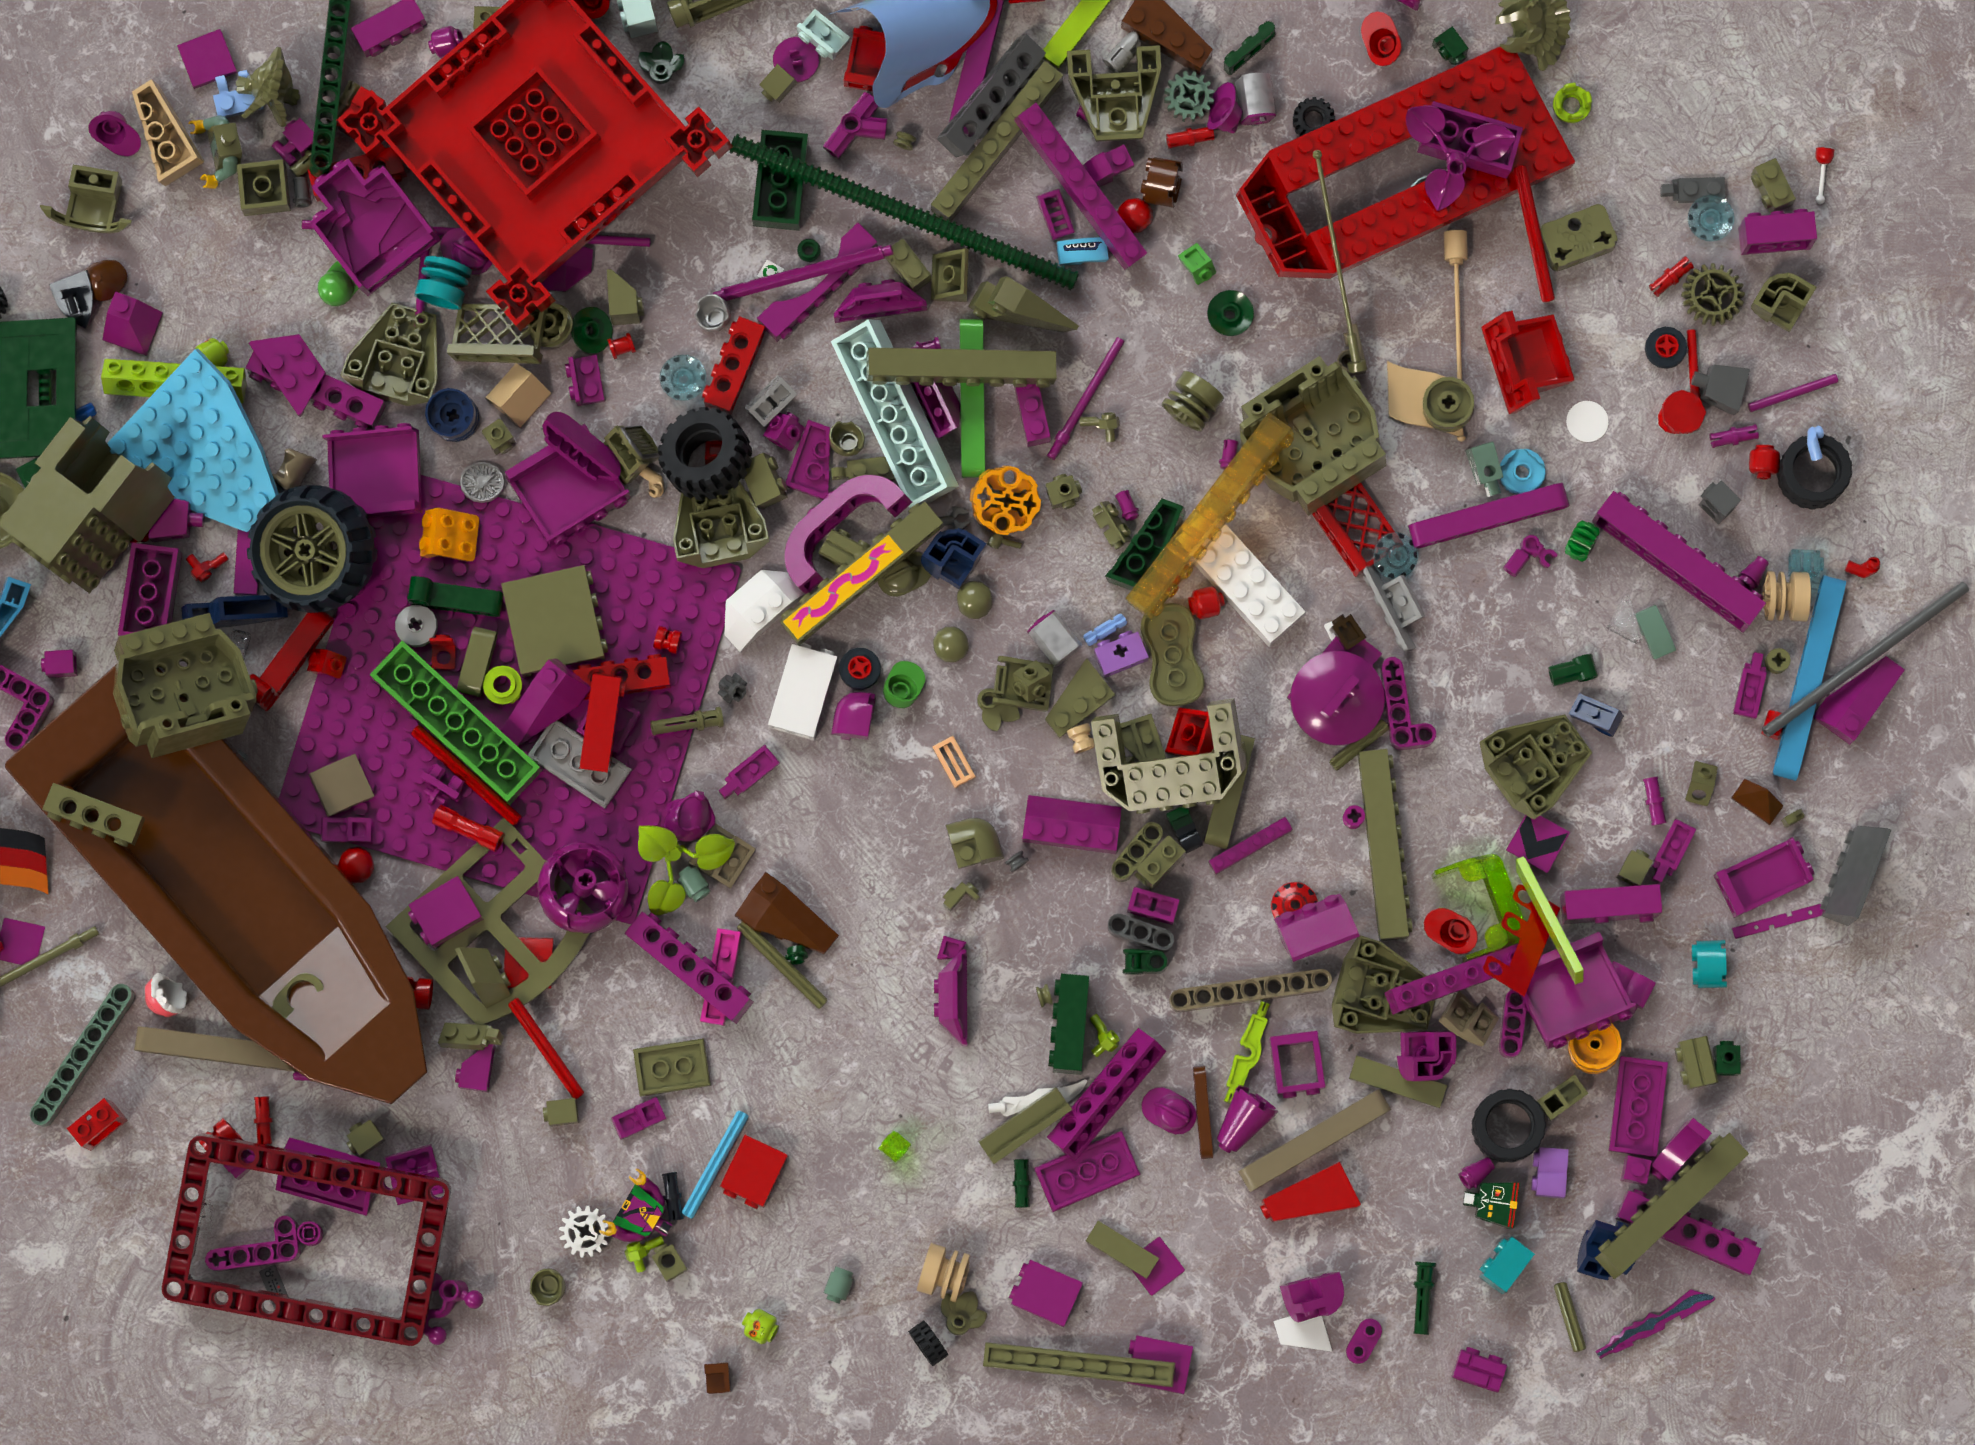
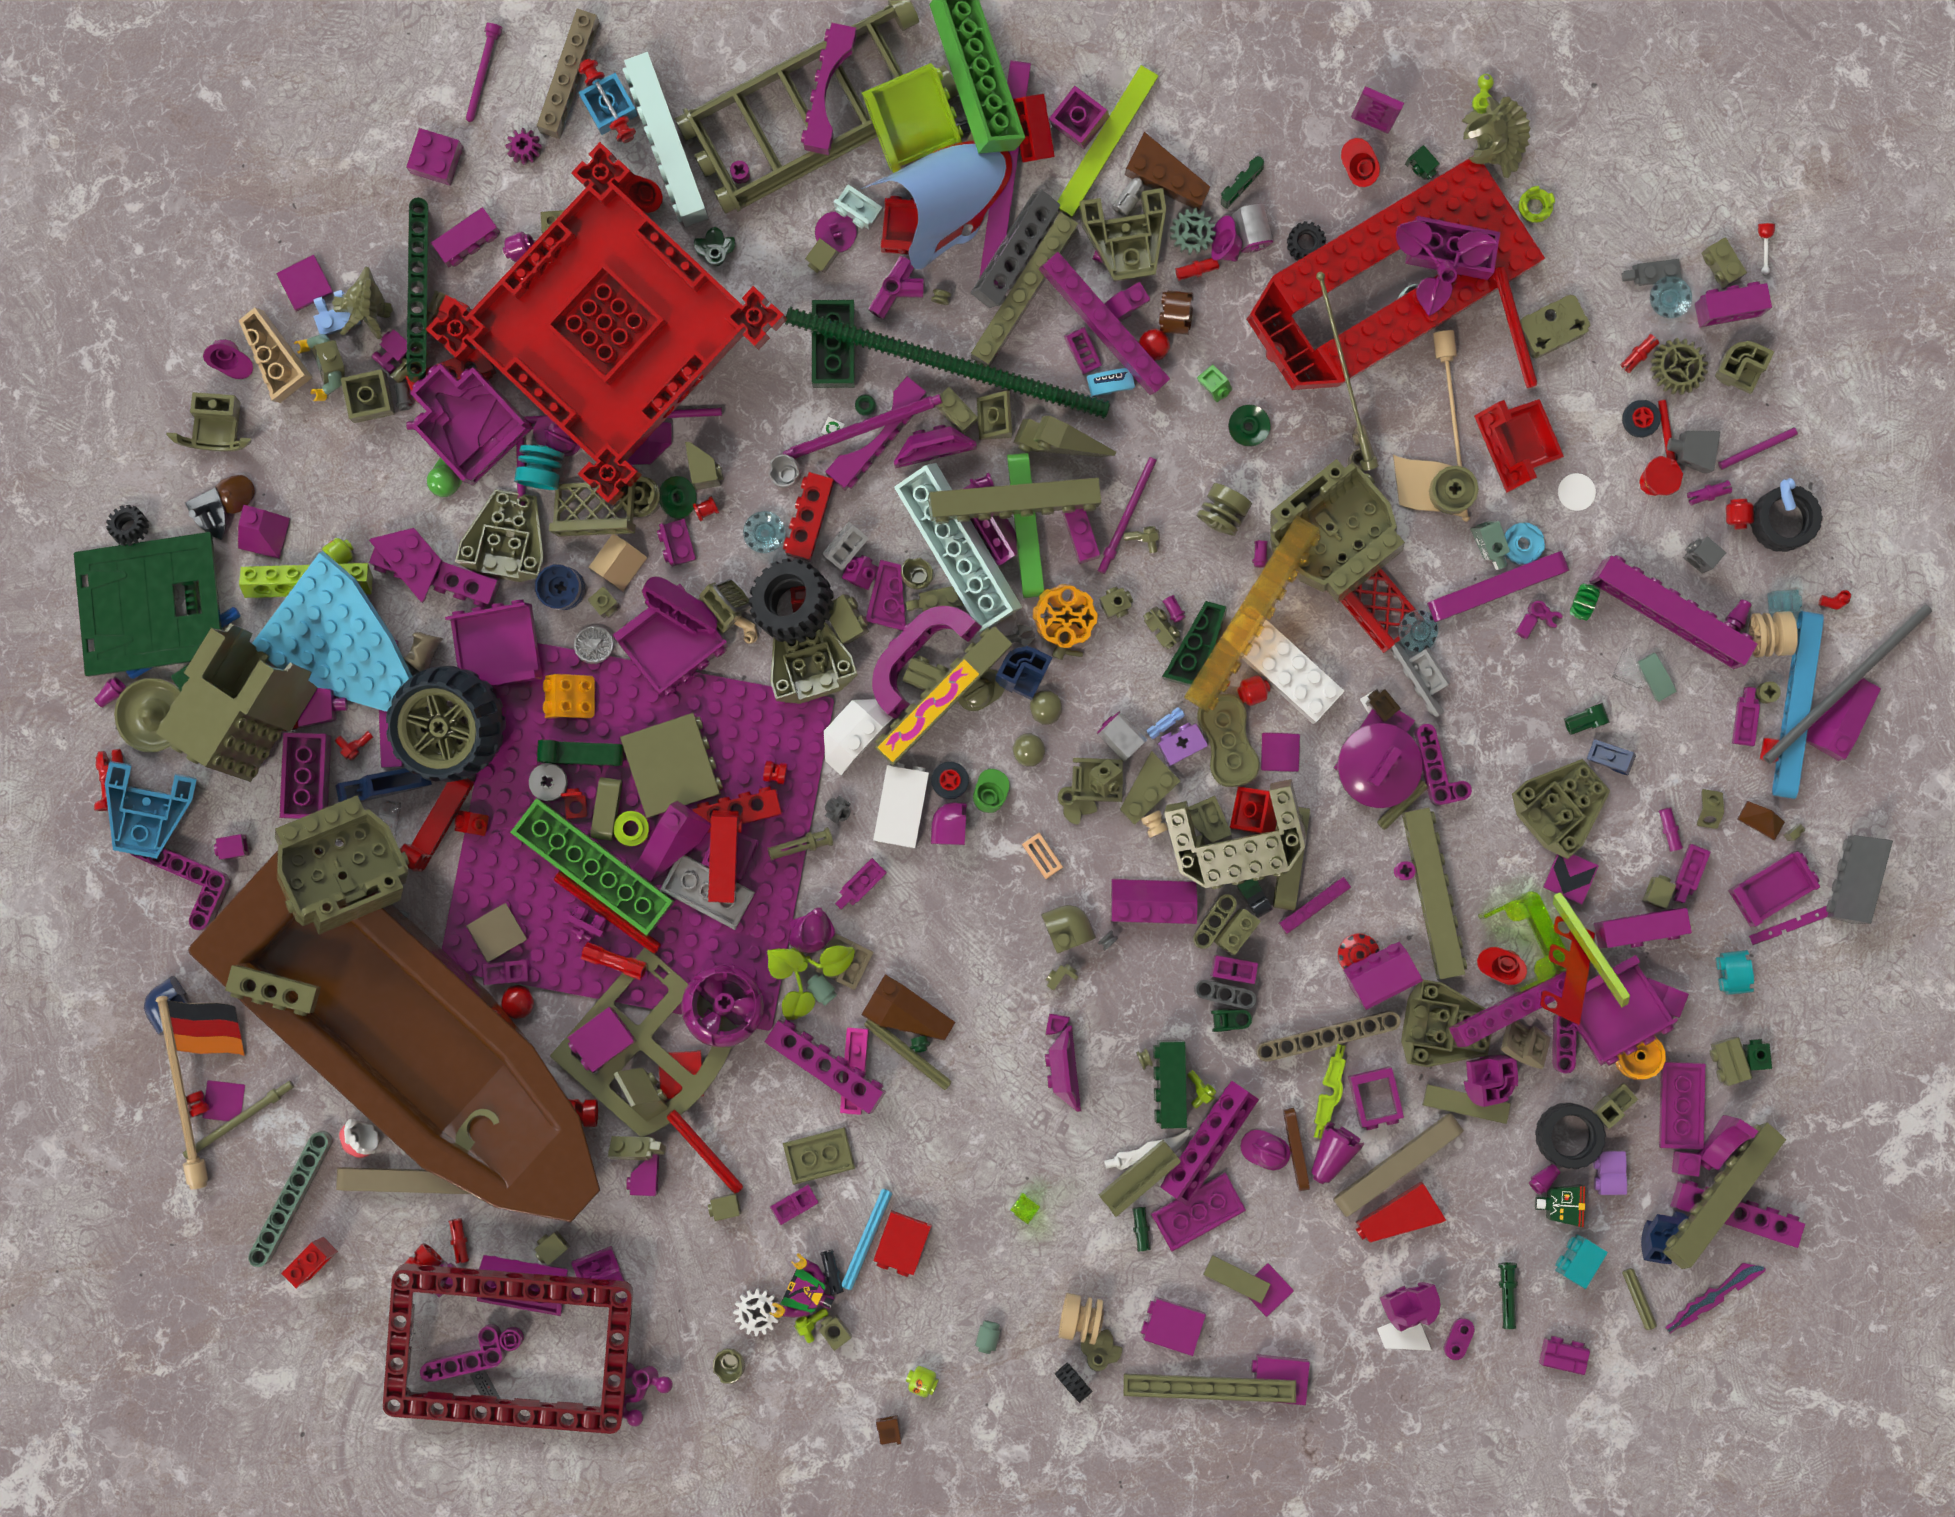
camera: 10 degrees left, 5 degrees up
(1229, 674) = (1280, 752): none -> magenta sticker

